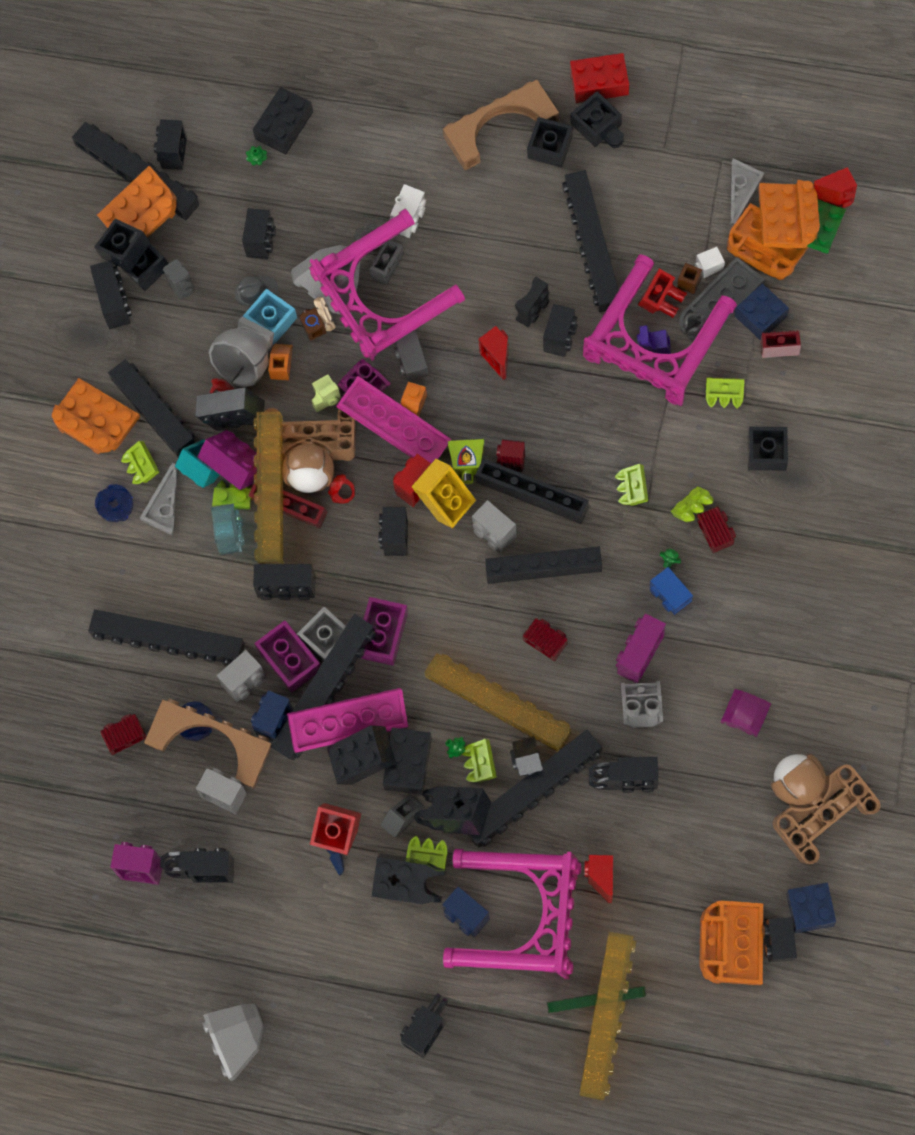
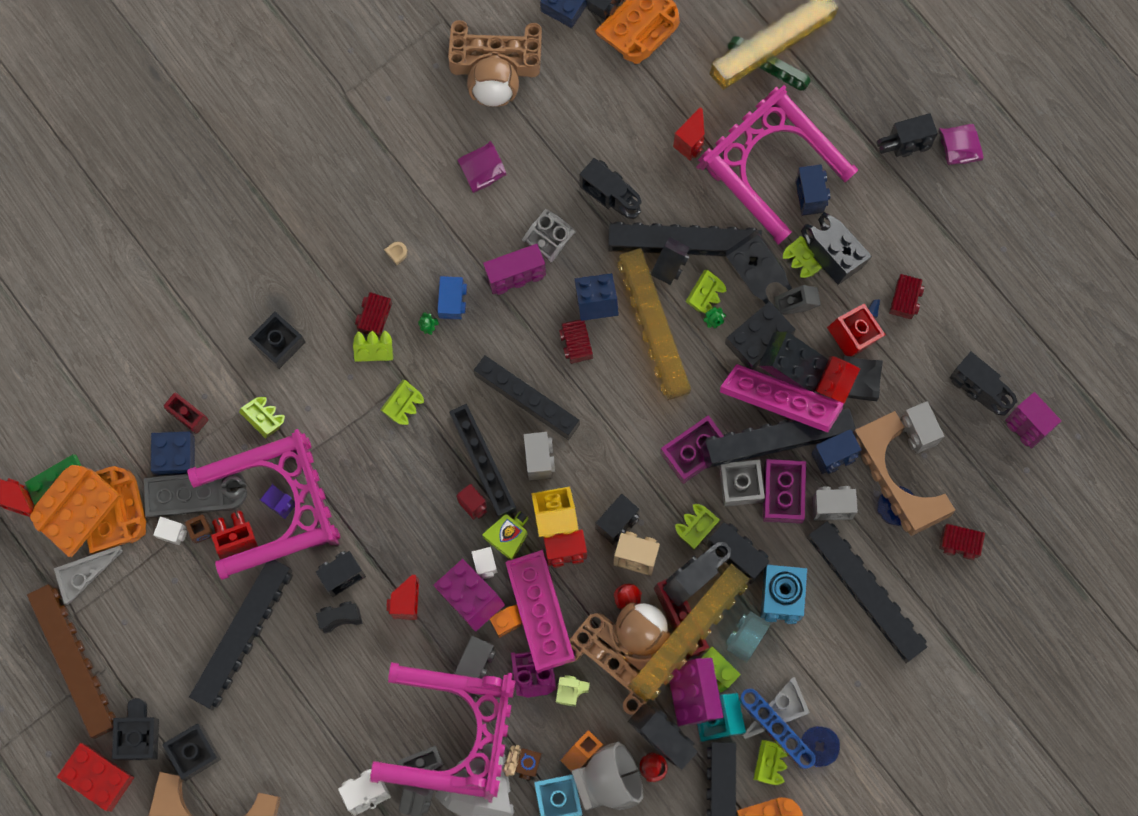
camera: 145 degrees left, 5 degrees up
(146, 478) = (787, 732): none -> blue beam
(226, 580) = (781, 606): none -> dark azure brick
(235, 1036) = (1052, 238): light grey brick -> none
(299, 532) = (695, 574): none -> black brick
(301, 794) = (868, 379): none -> black brick
(317, 770) = (837, 379): none -> red slope
(318, 891) = (906, 296): none -> dark red brick
(332, 580) = (697, 527): none -> lime plate
(357, 514) = (636, 553): none -> tan brick
(379, 1065) = (961, 144): none -> magenta slope
(454, 390) = (469, 595): none -> magenta brick
(465, 426) = (484, 562): none -> white brick
(559, 680) = (596, 297): none -> dark blue brick
(690, 130) = (72, 661): none -> reddish brown brick
(746, 593) = (397, 252): none -> tan tile

